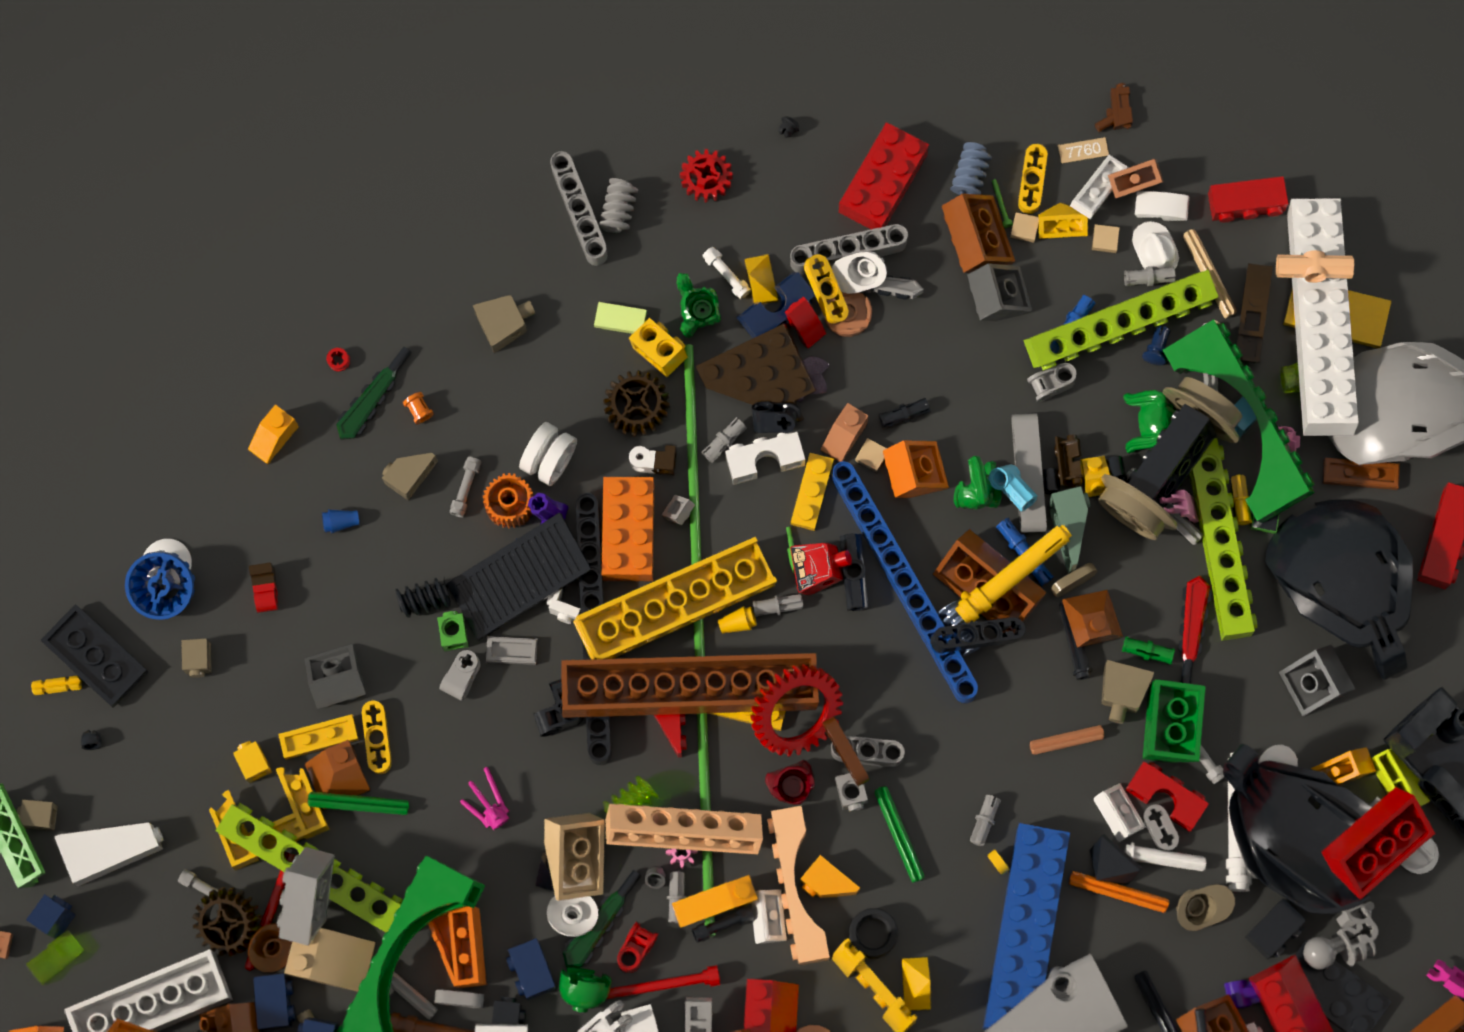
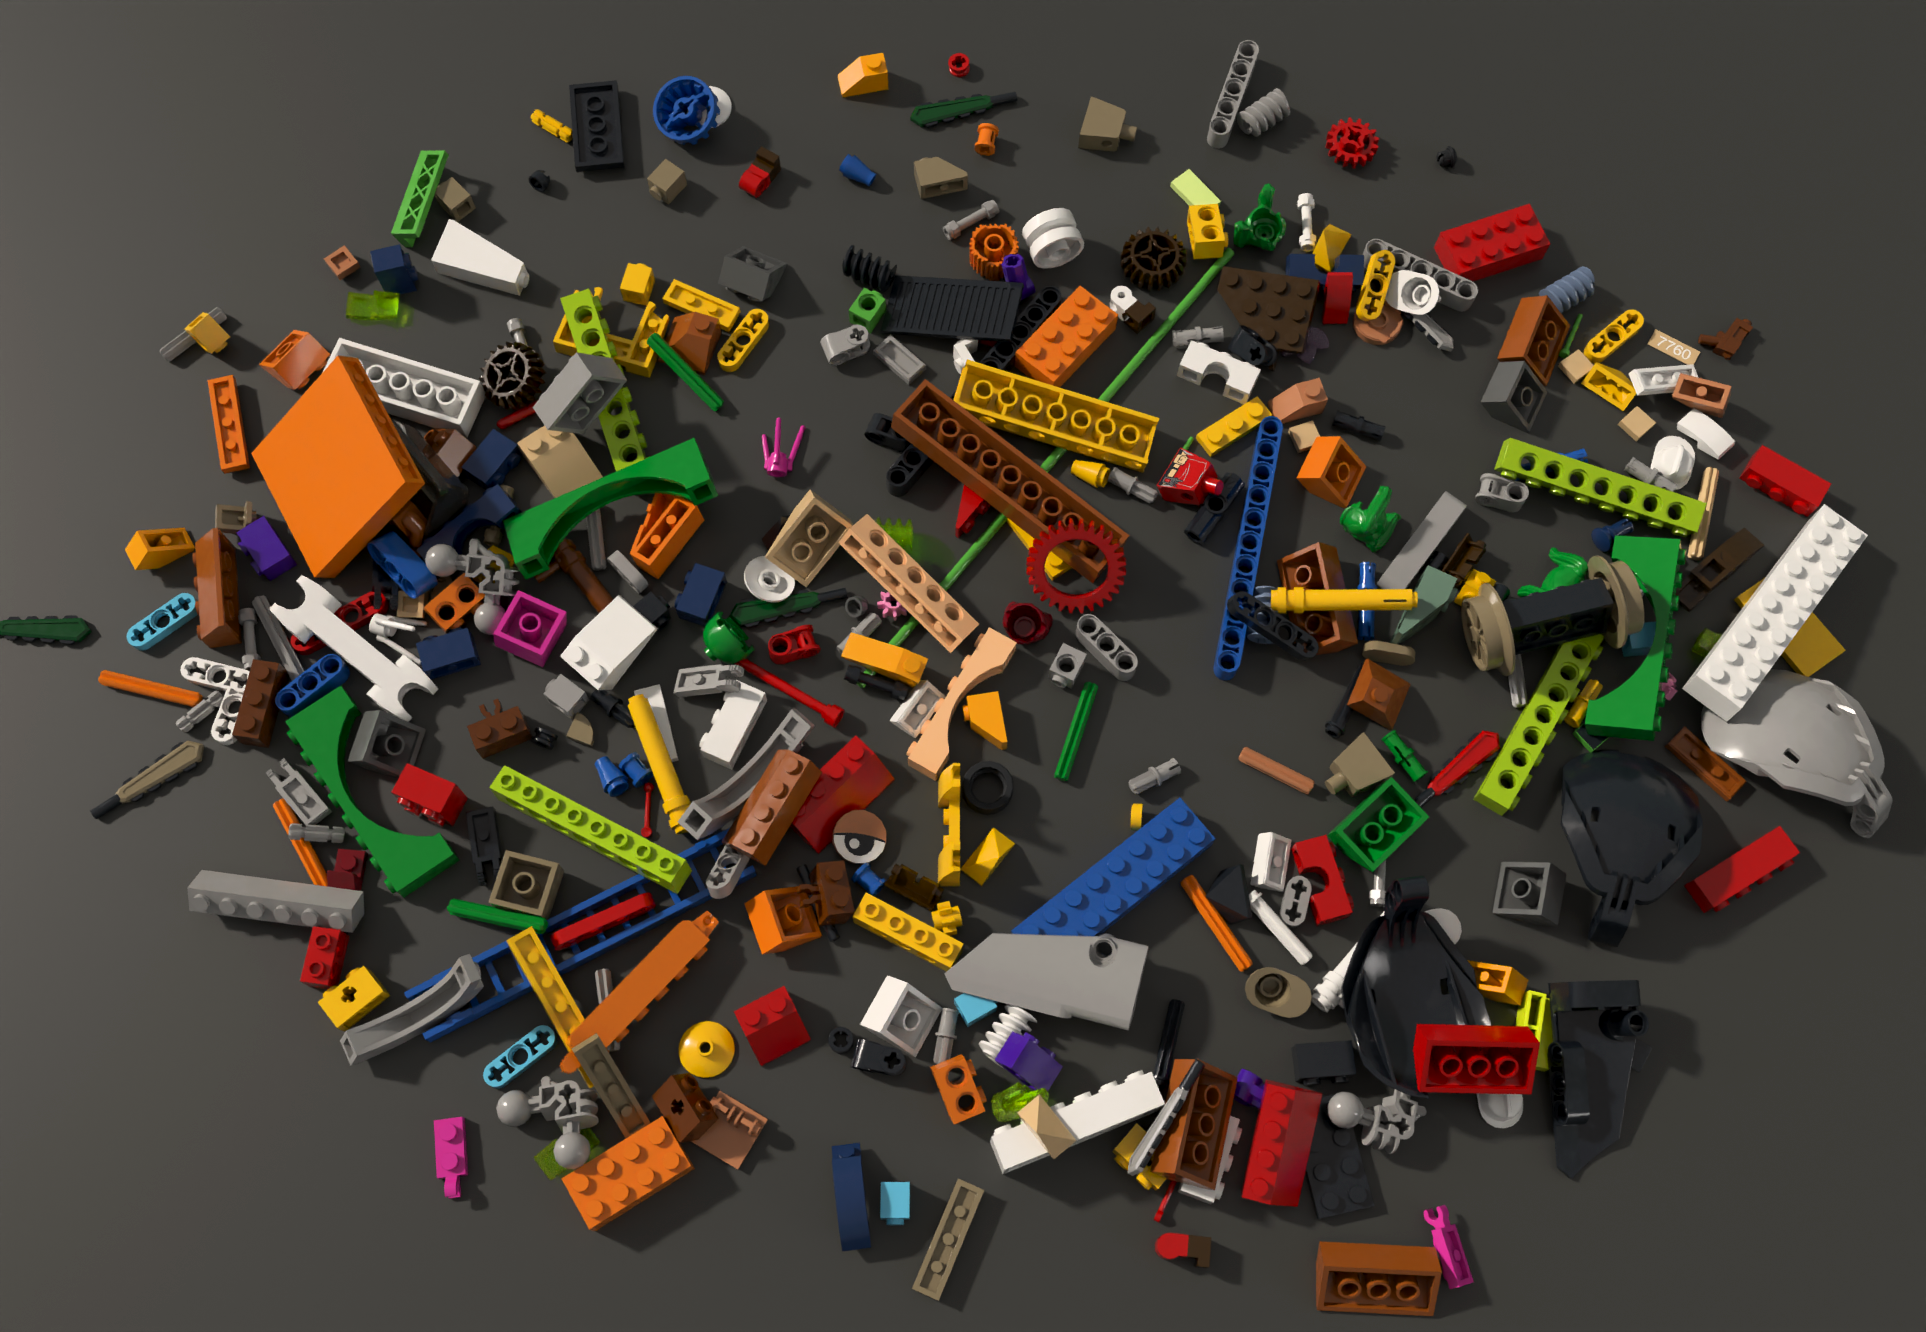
camera: 35 degrees right, 5 degrees down
(270, 958) = (512, 418): reddish brown dish -> none
(678, 509) = (1117, 357): light grey plate -> none
(845, 751) = (1087, 628): reddish brown beam -> none
(1013, 487) = (1400, 539): medium azure piece -> none
(1186, 505) = (1532, 661): bright pink arm -> none
(1314, 266) = (1804, 562): light nougat piece -> none

